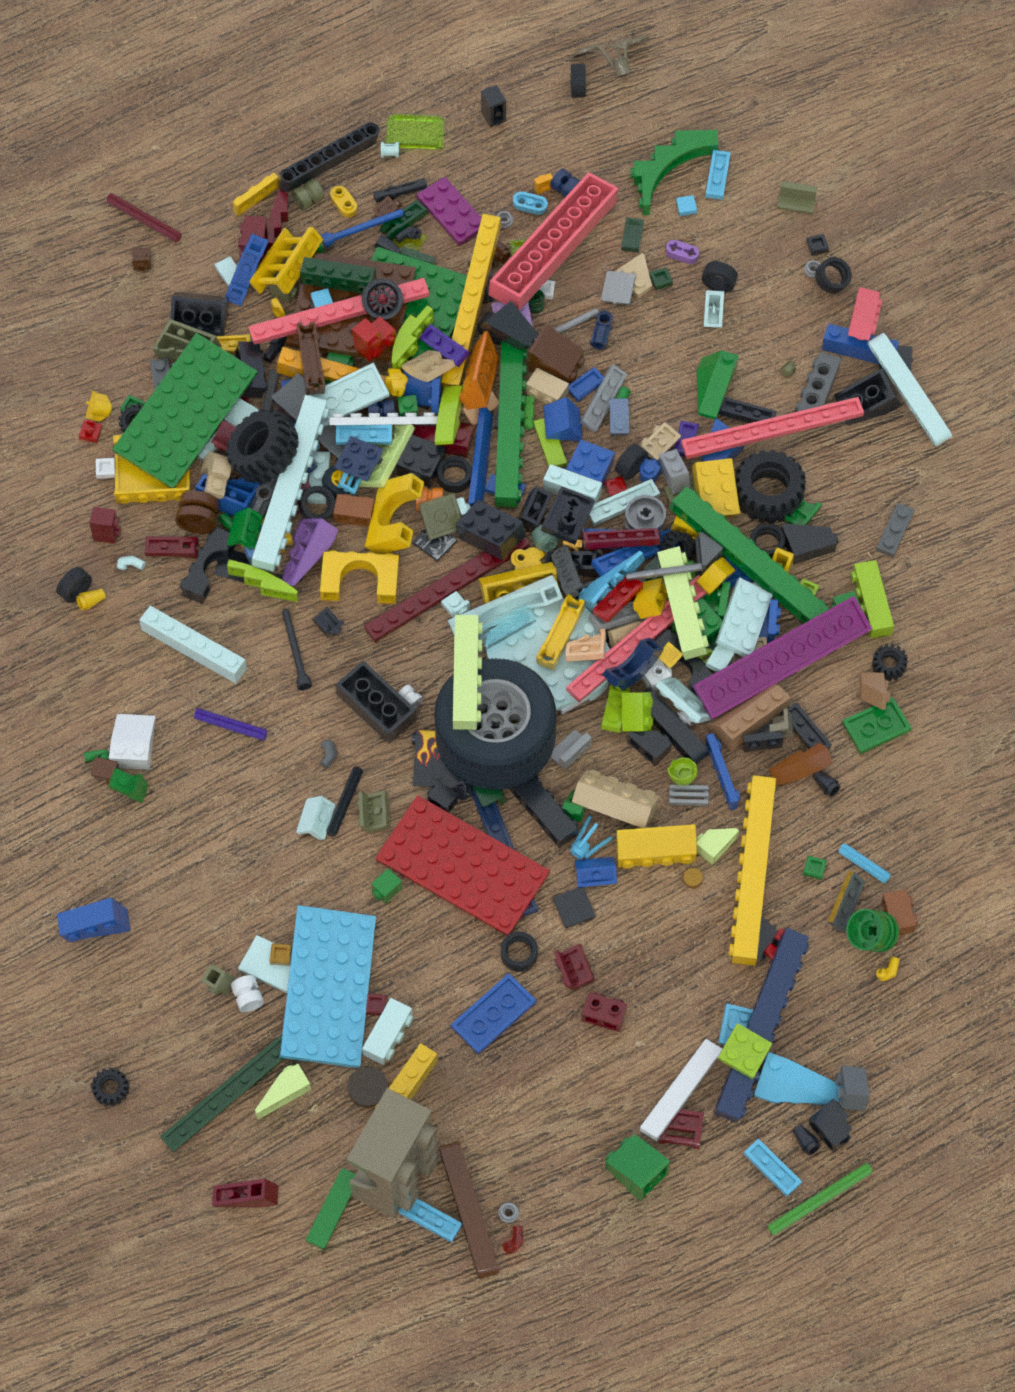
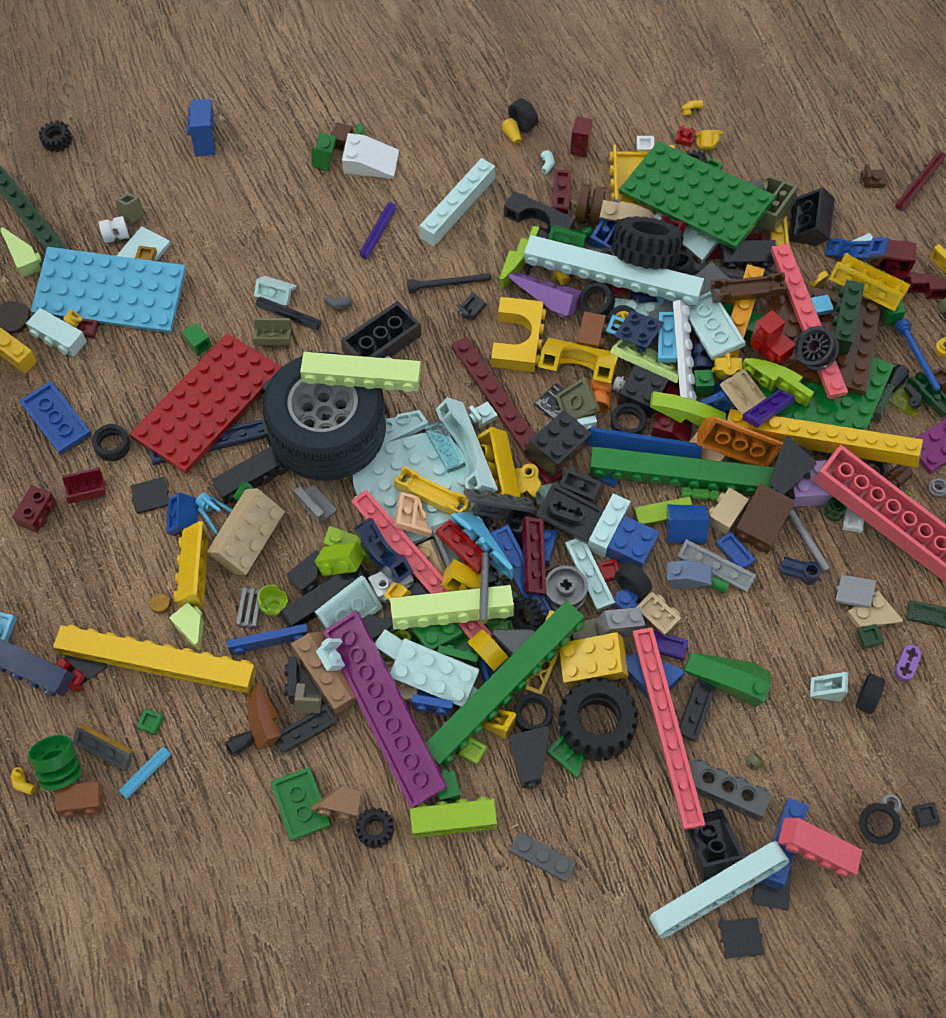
camera: 95 degrees right, 0 degrees up
(49, 427) = (696, 104): none -> yellow arm
(371, 1014) = (72, 318): none -> yellow bush
(741, 704) = (329, 656): none -> light aqua bracket
(940, 380) = (741, 938): none -> black piece

